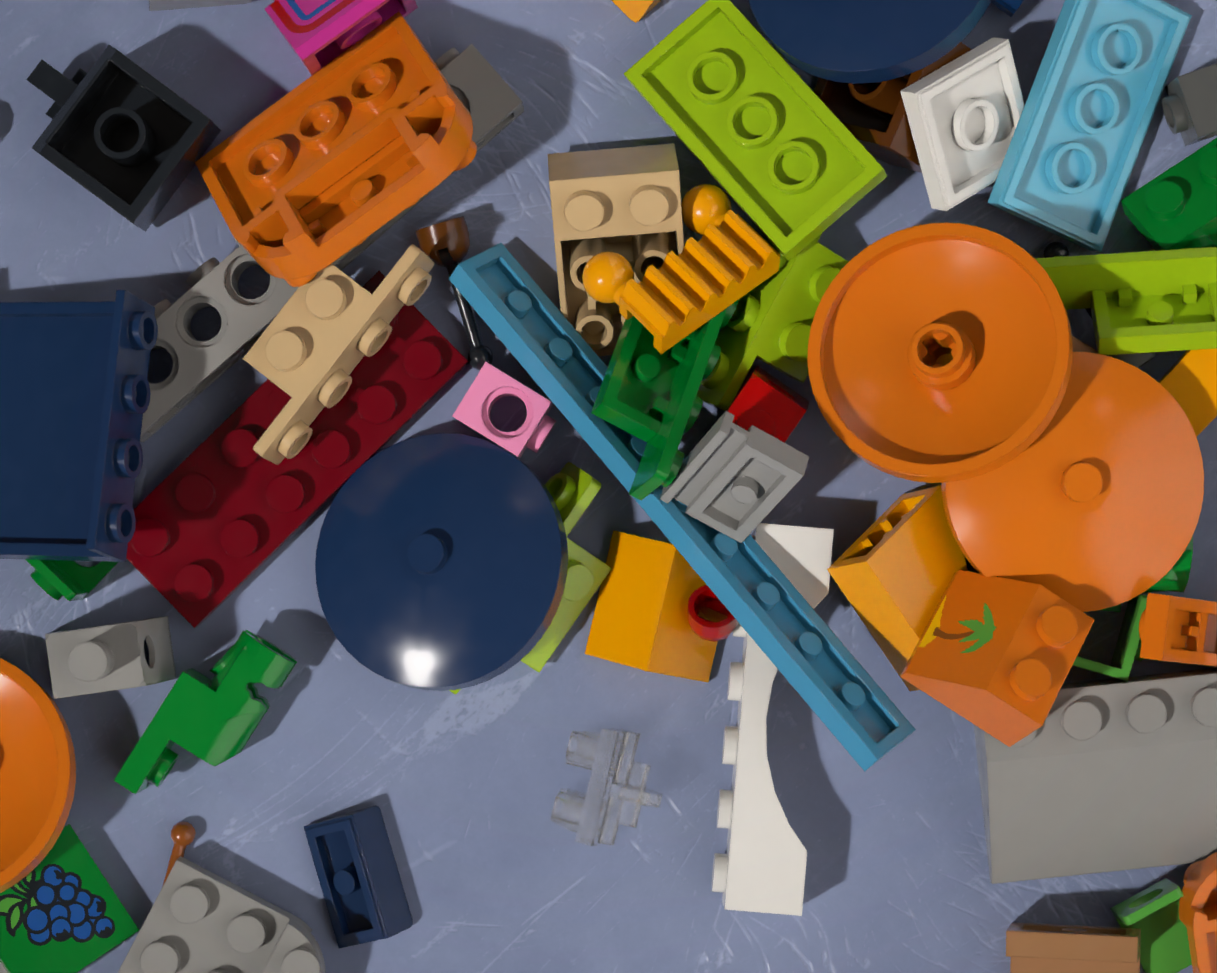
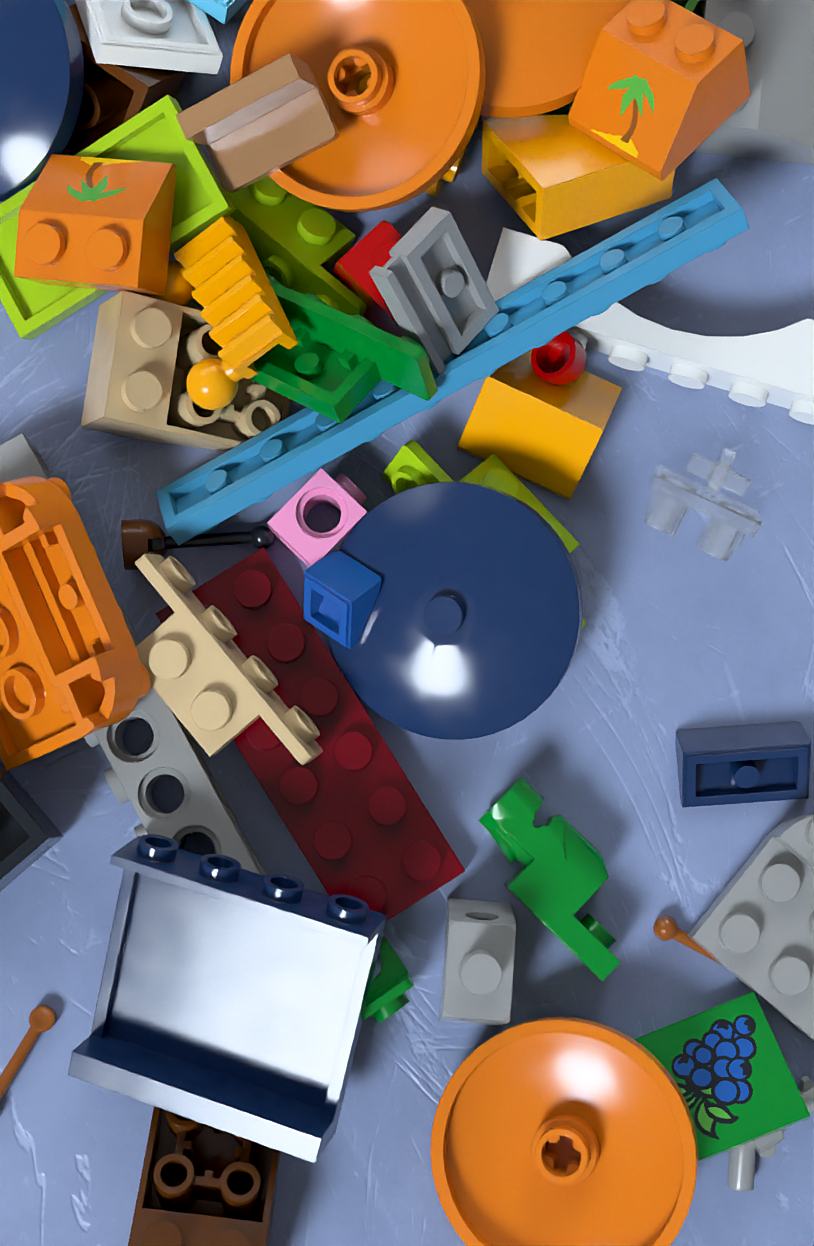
camera: 80 degrees left, 5 degrees down
(429, 448) = (339, 596): none -> blue slope
(738, 130) = (98, 225): none -> orange slope
(871, 271) = (261, 122): none -> medium nougat panel

